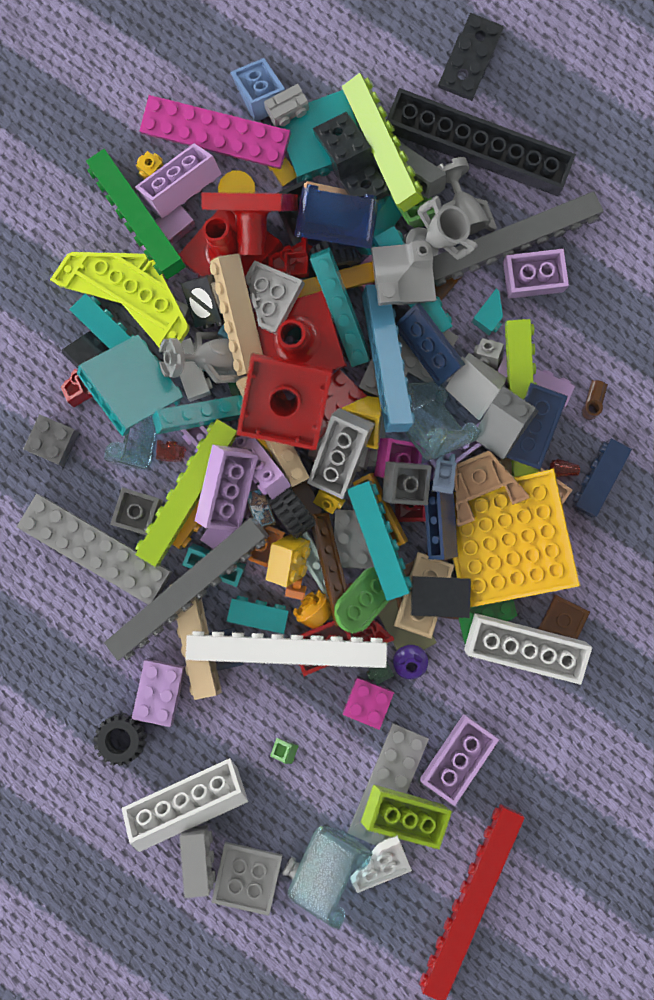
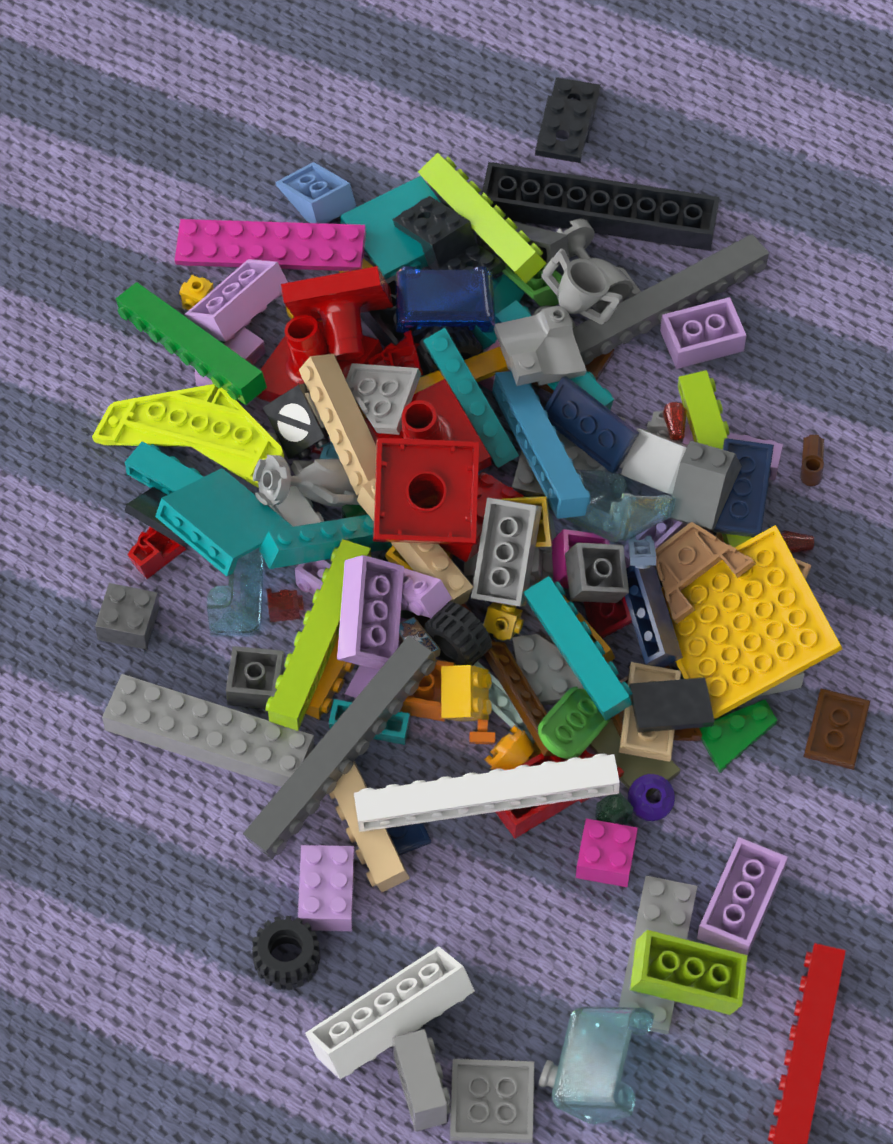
camera: 10 degrees left, 25 degrees down
(258, 614) = (431, 768): teal brick -> none
(284, 751) = (508, 936): bright green slope -> none
(286, 106) = (355, 200): light grey brick -> none
(386, 864) = (672, 1043): white plate -> none
(490, 314) = (656, 387): teal slope -> none
(496, 356) = (675, 419): none -> clear red cone
(527, 648) = (798, 747): white brick -> none
(601, 478) = (843, 544): dark blue brick -> none

